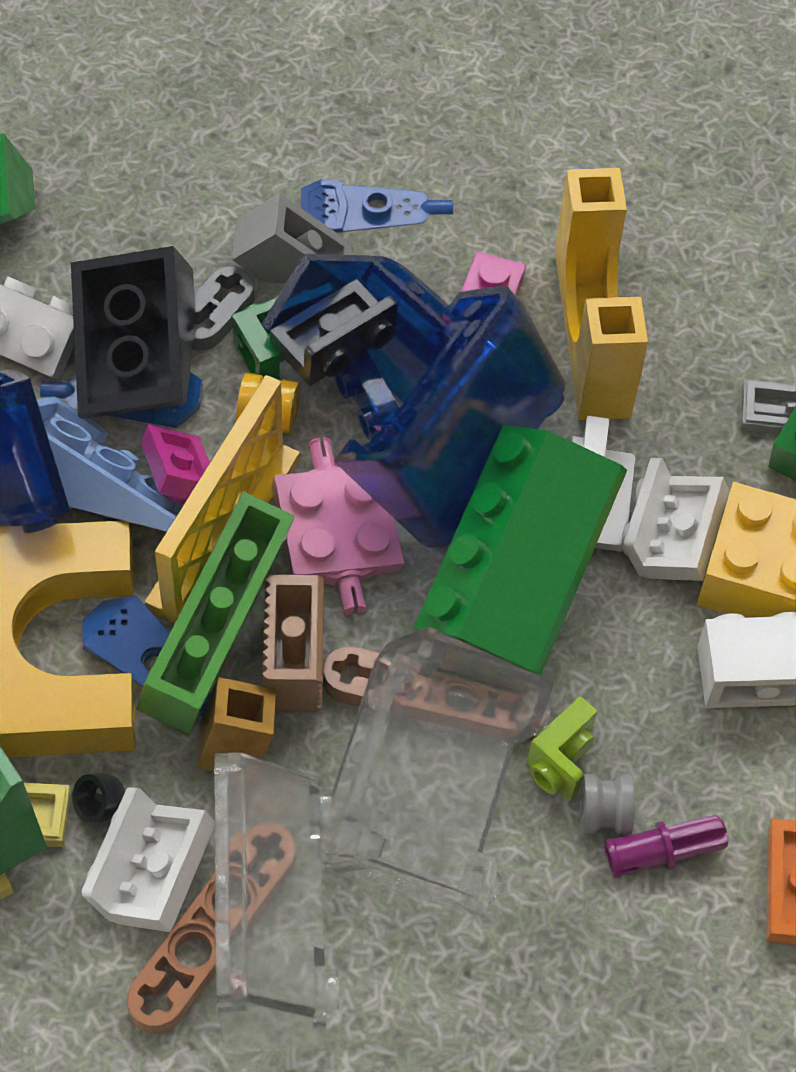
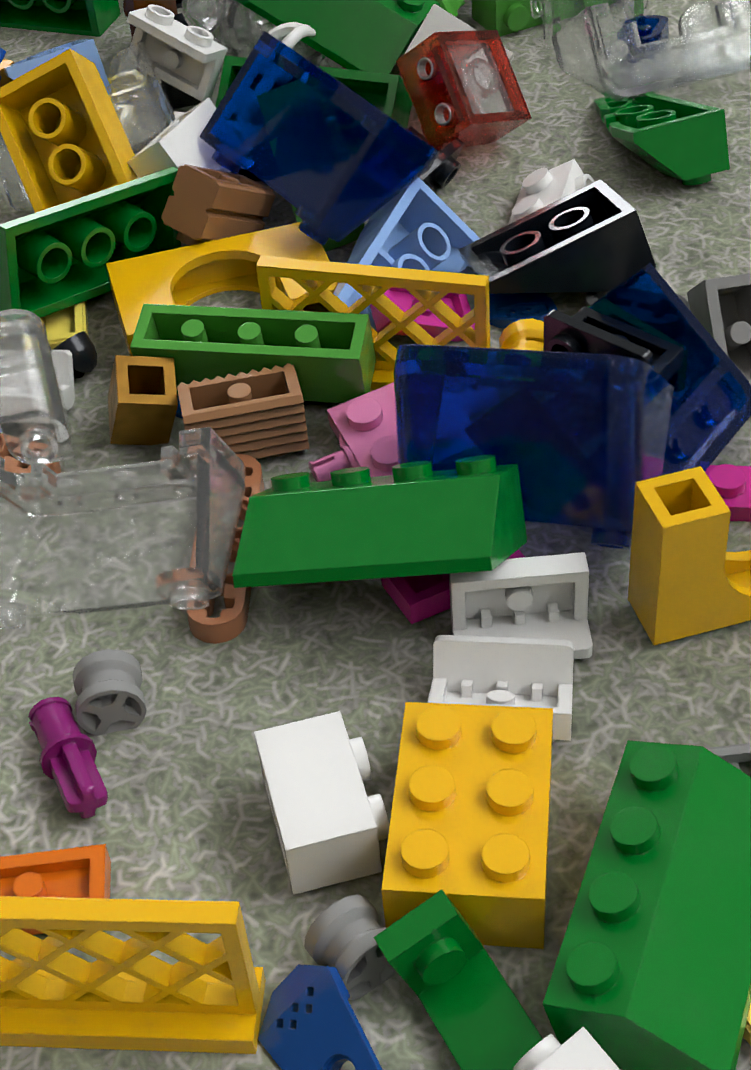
camera: 85 degrees right, 15 degrees down
(559, 747) = (176, 638): lime bracket -> none

